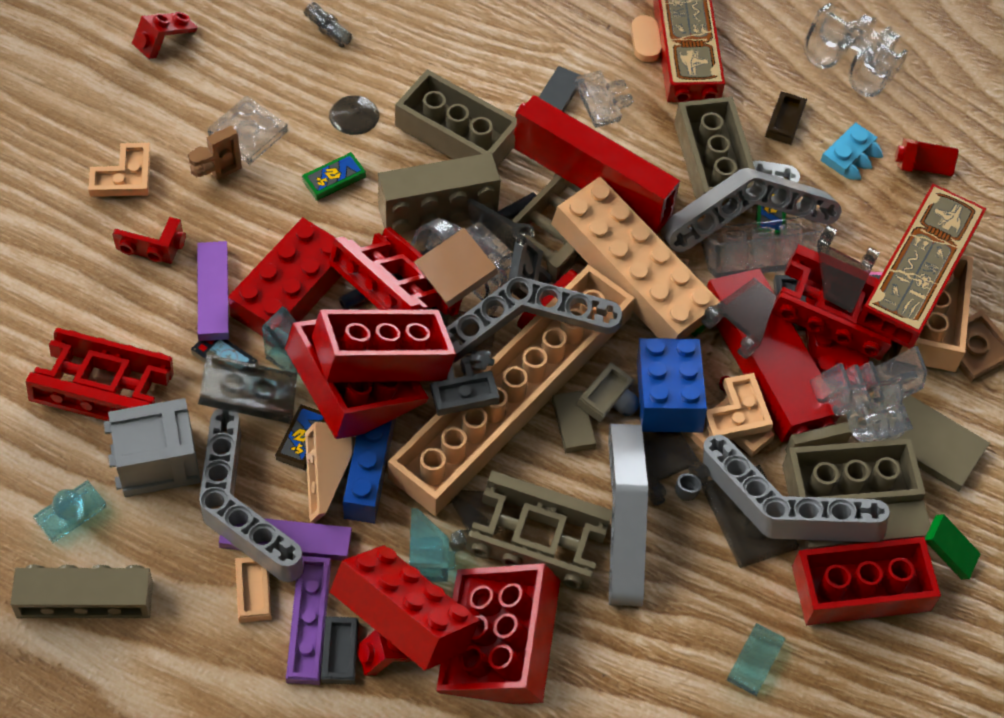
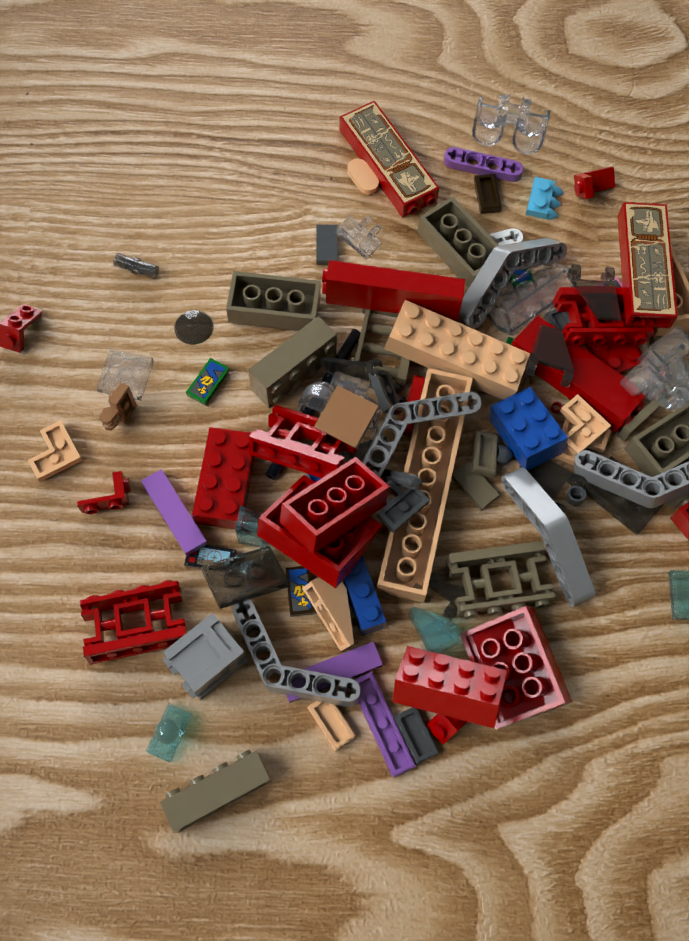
camera: 25 degrees left, 10 degrees up
(803, 80) = (483, 160): none -> medium lavender beam

